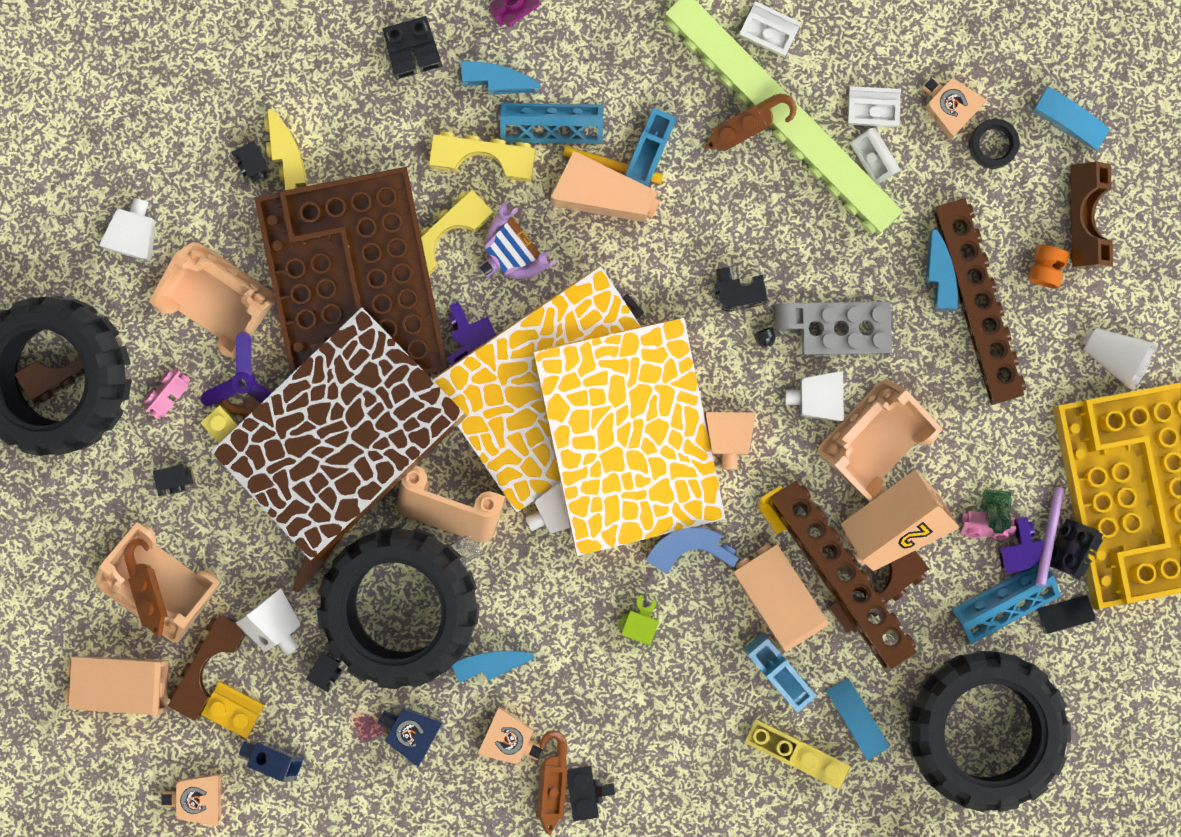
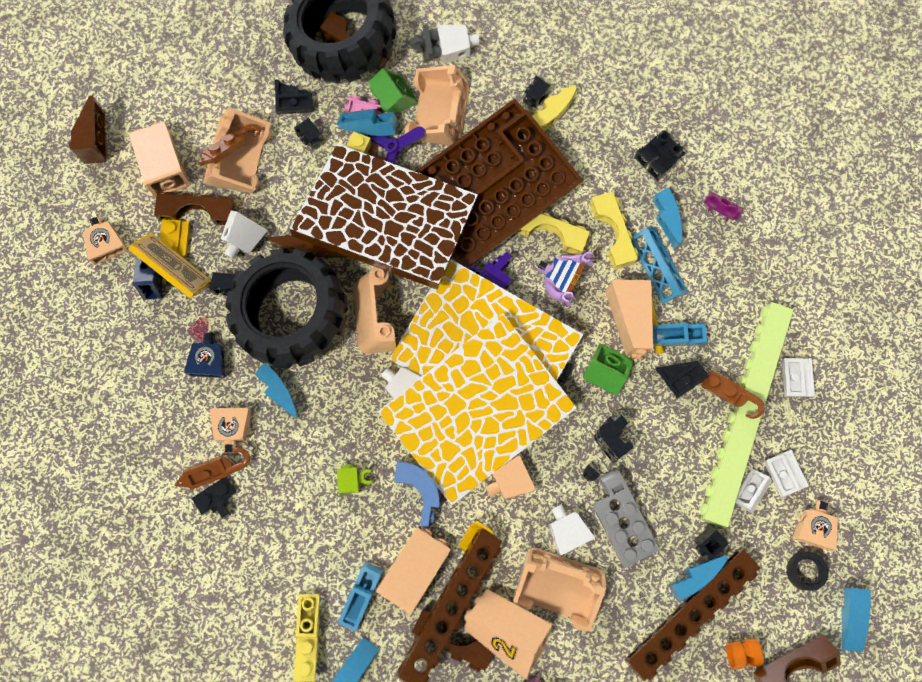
camera: 60 degrees right, 10 degrees down
(47, 760) = (89, 133): none -> reddish brown slope
(112, 480) = (291, 99): none -> black wing
(113, 274) = (423, 45): none -> dark grey hips
(165, 346) = (392, 91): none -> bright green slope
(193, 397) = (369, 122): none -> dark azure slope
(274, 727) = (170, 265): none -> tile
(652, 252) = (608, 369): none -> bright green slope
(704, 168) = (682, 377): none -> black wing
(915, 233) = (715, 545): none -> black brick

